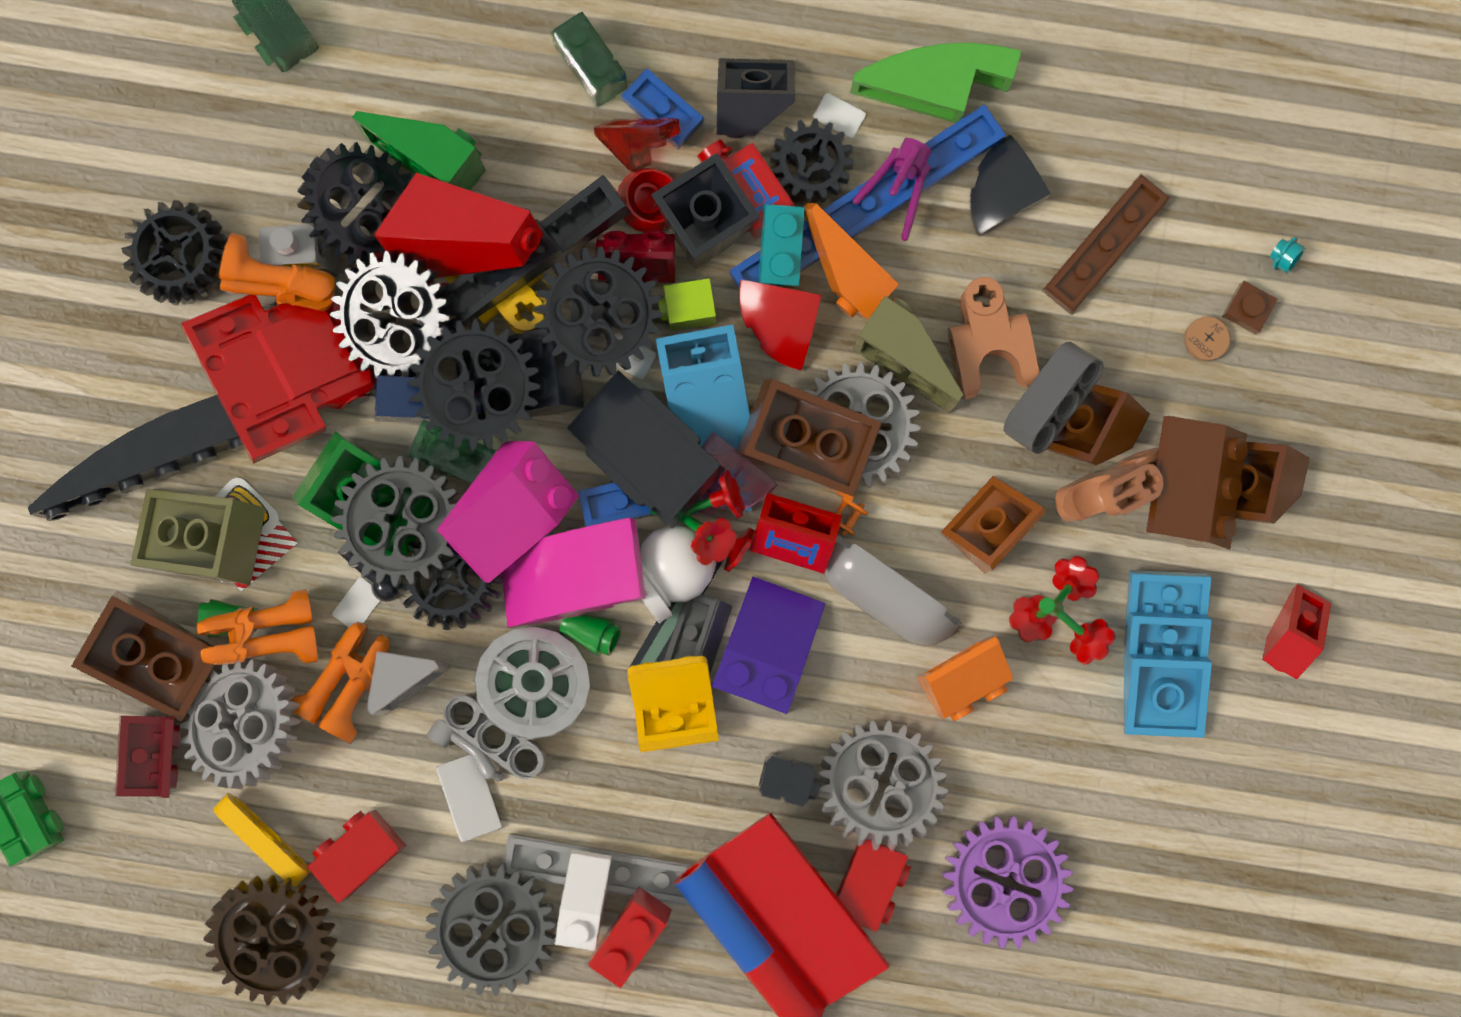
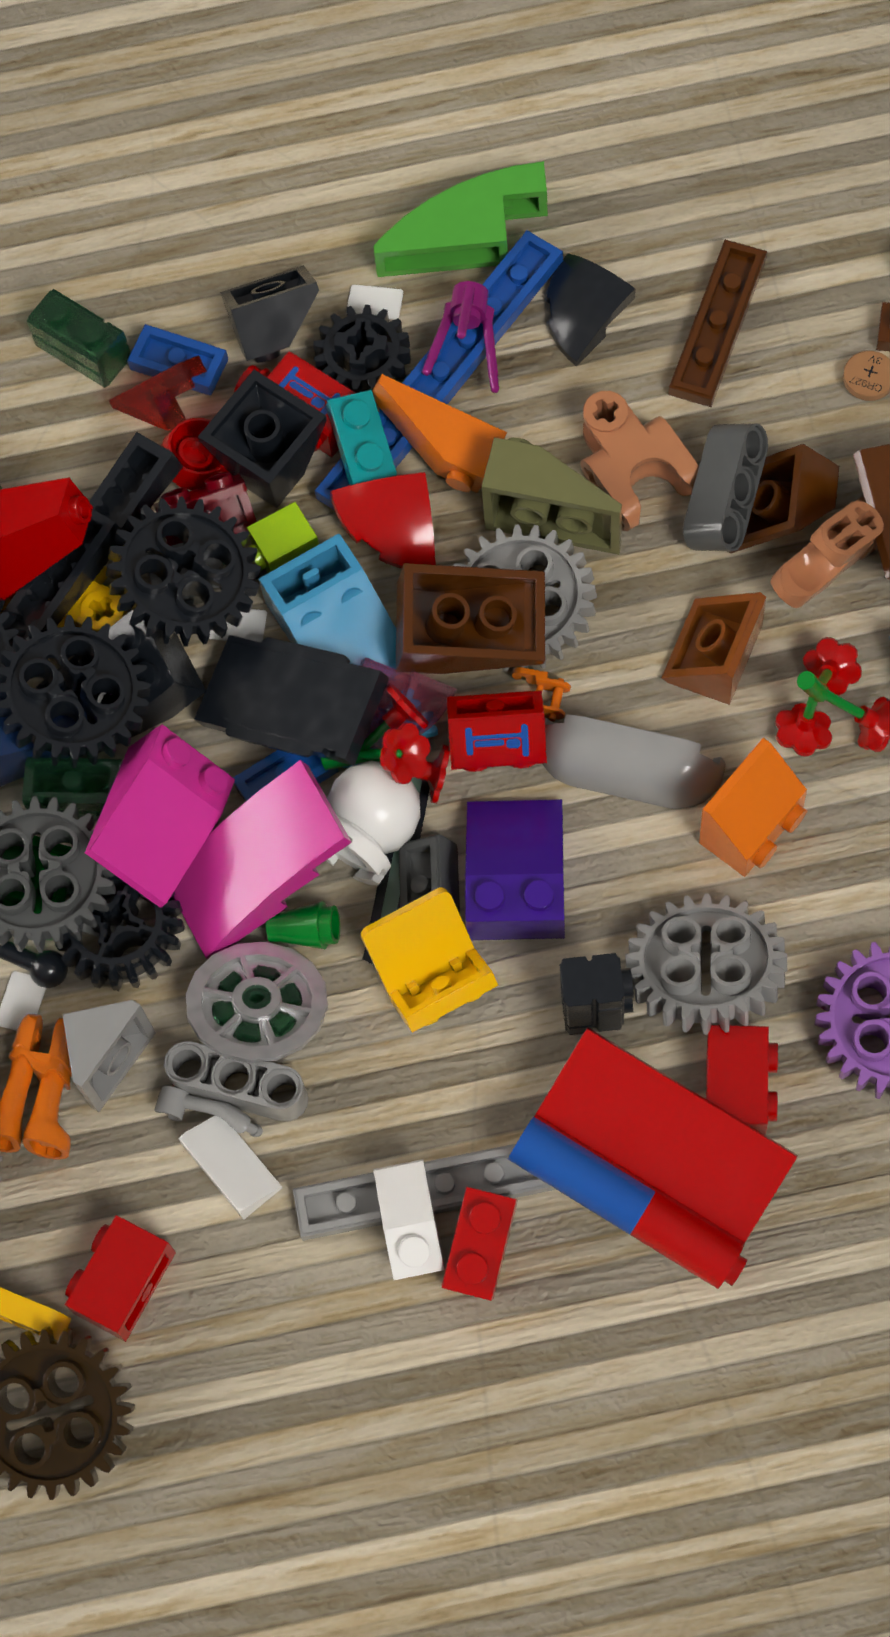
camera: 10 degrees left, 15 degrees down
(518, 950) = (267, 1287): dark grey gear -> none

